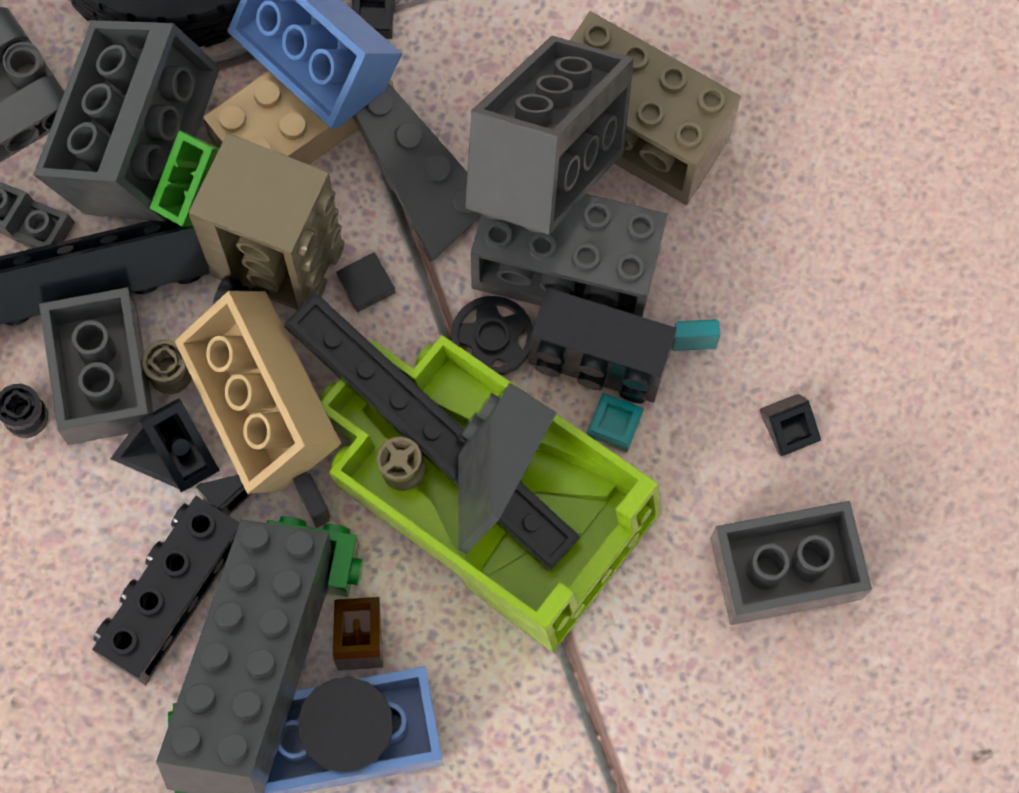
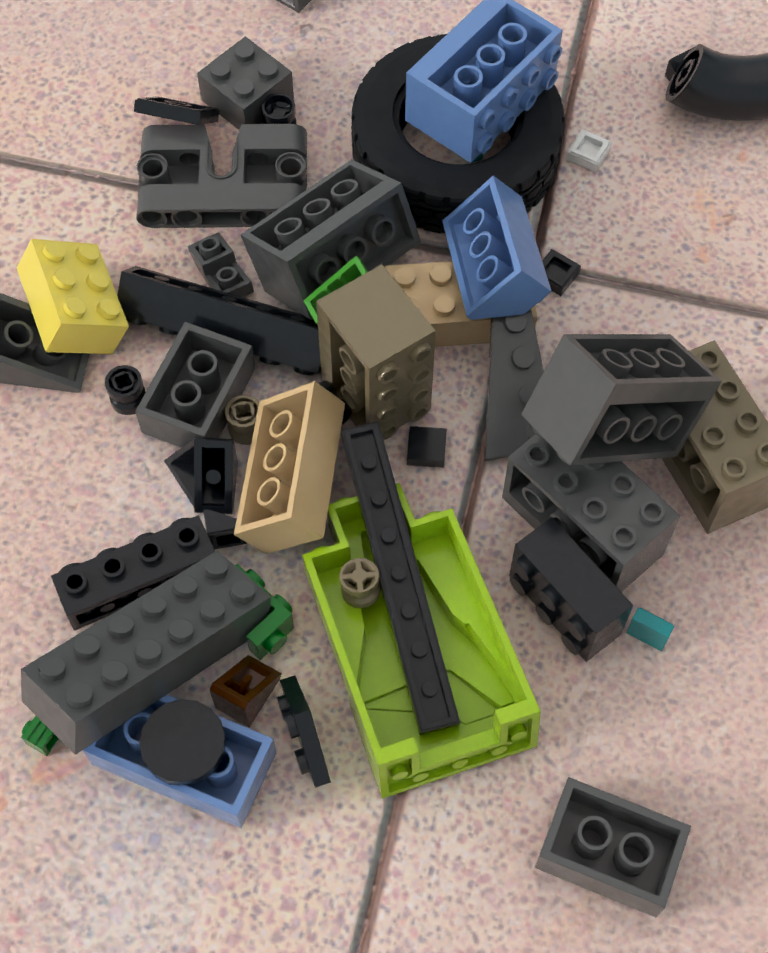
camera: 35 degrees right, 10 degrees down
(312, 499) = (280, 571): black tile -> none
(442, 637) = (301, 725): none -> black plate
(494, 335) = (494, 537): black wheel -> none
(495, 458) = (438, 609): dark grey slope -> none
(615, 422) = (545, 656): teal tile -> none
(790, 424) = (684, 744): black slope -> none

